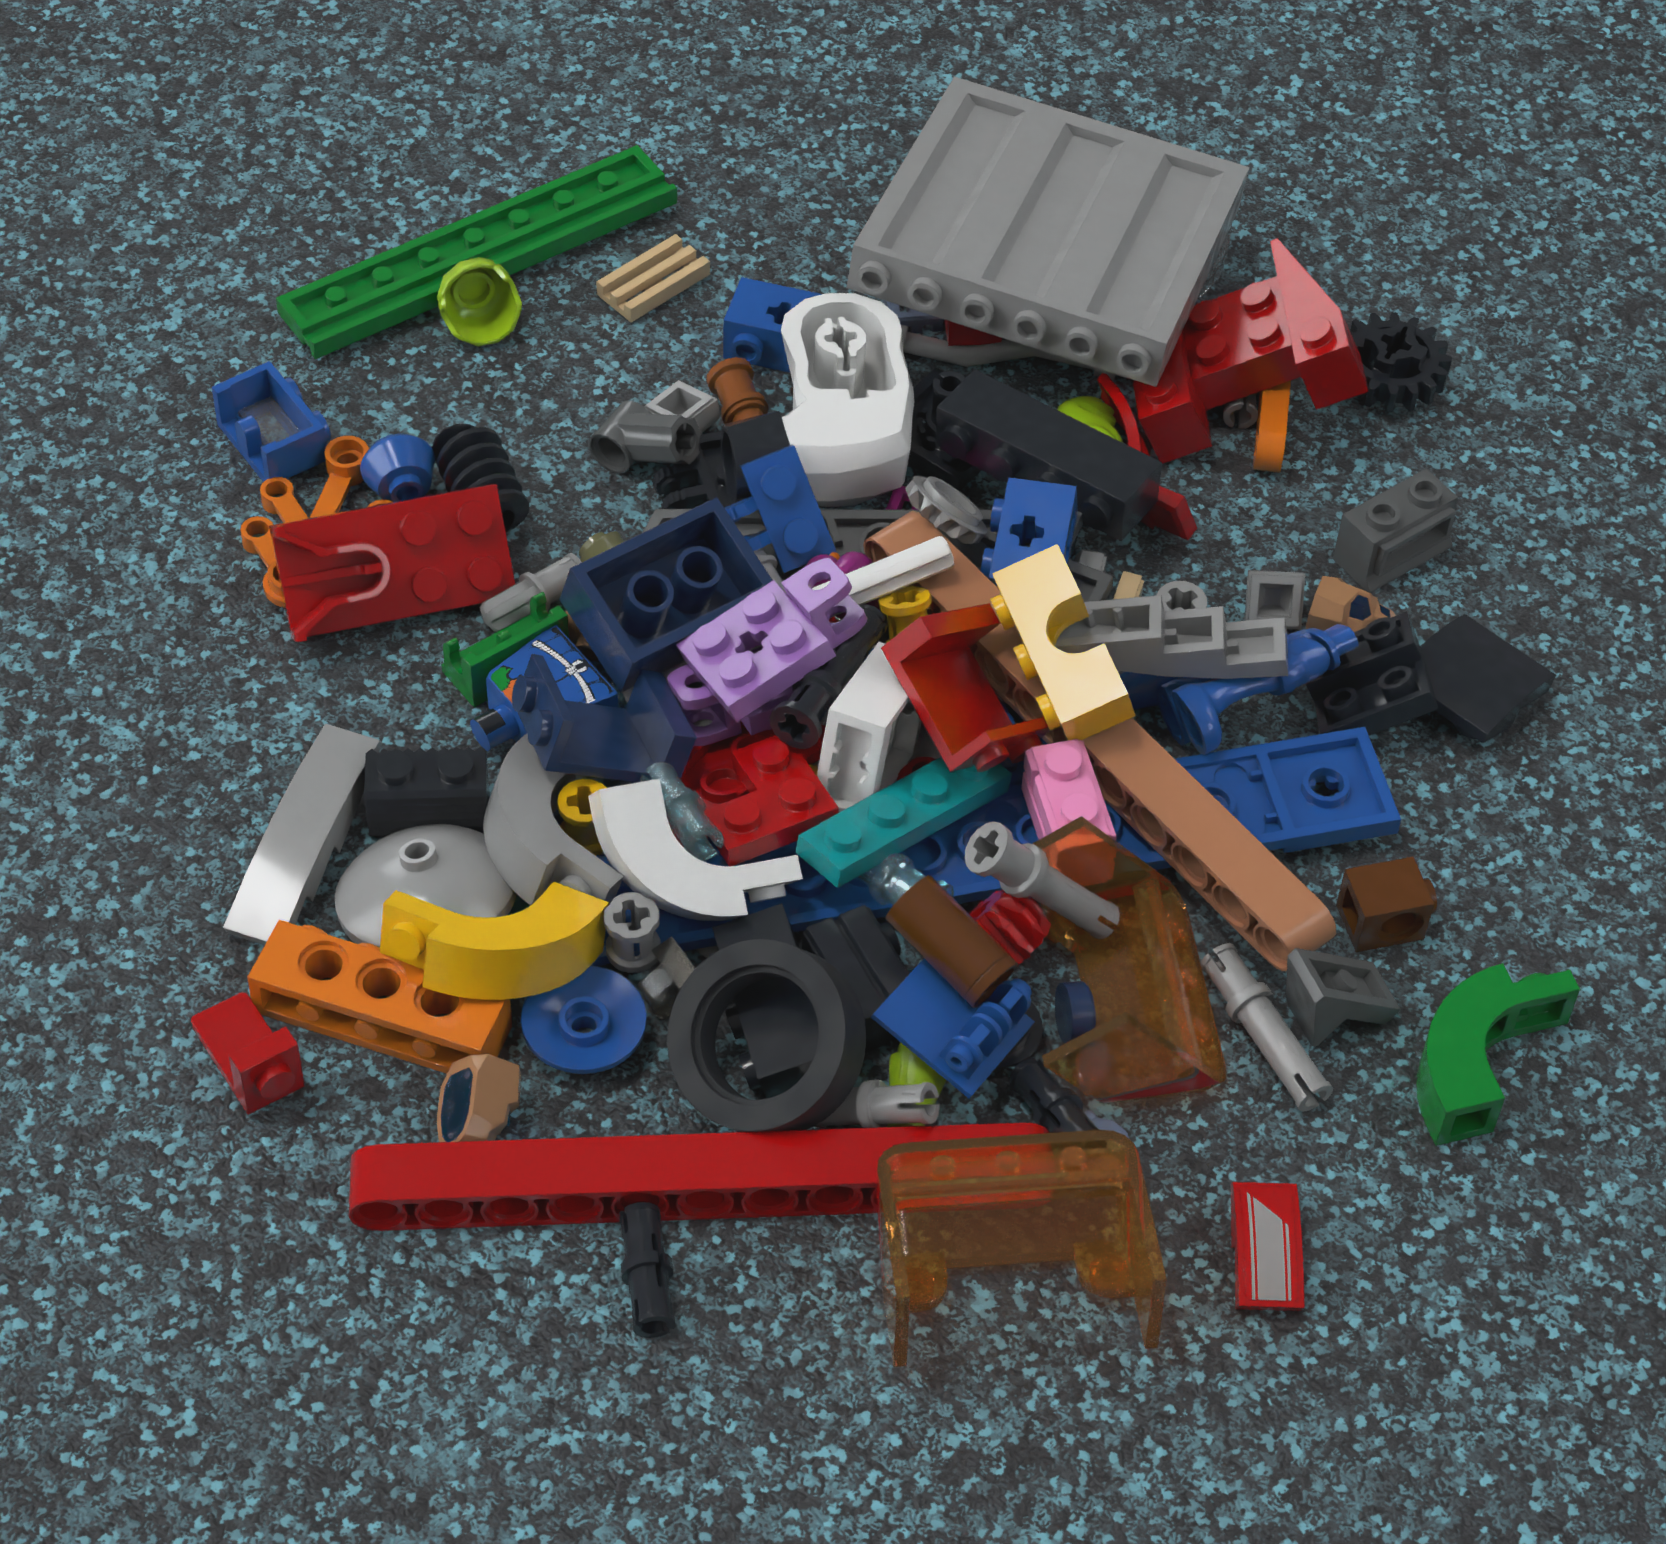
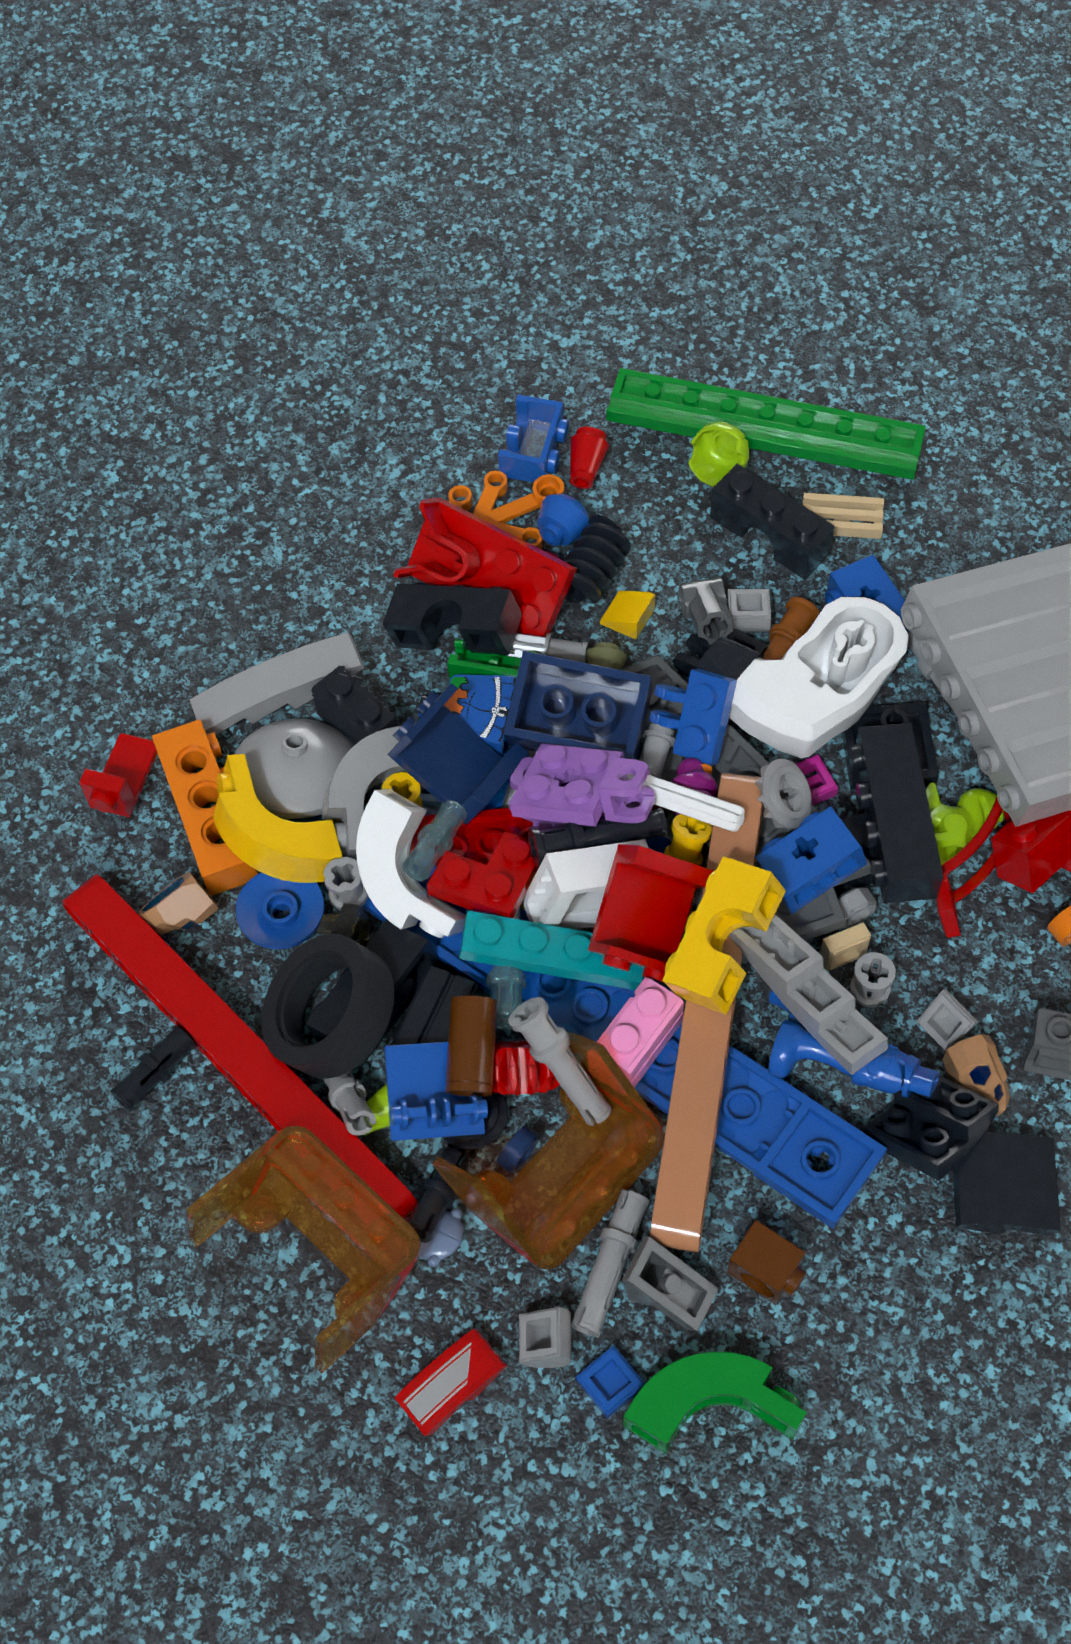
camera: 55 degrees right, 10 degrees up
(342, 398) = (586, 455): none -> red cone
(445, 597) = (423, 611): none -> black arch
(566, 317) = (797, 534): none -> black arch
(567, 503) = (629, 612): none -> yellow slope
(1298, 1130) = (545, 1338): none -> light grey brick
(1384, 1119) = (610, 1382): none -> blue tile

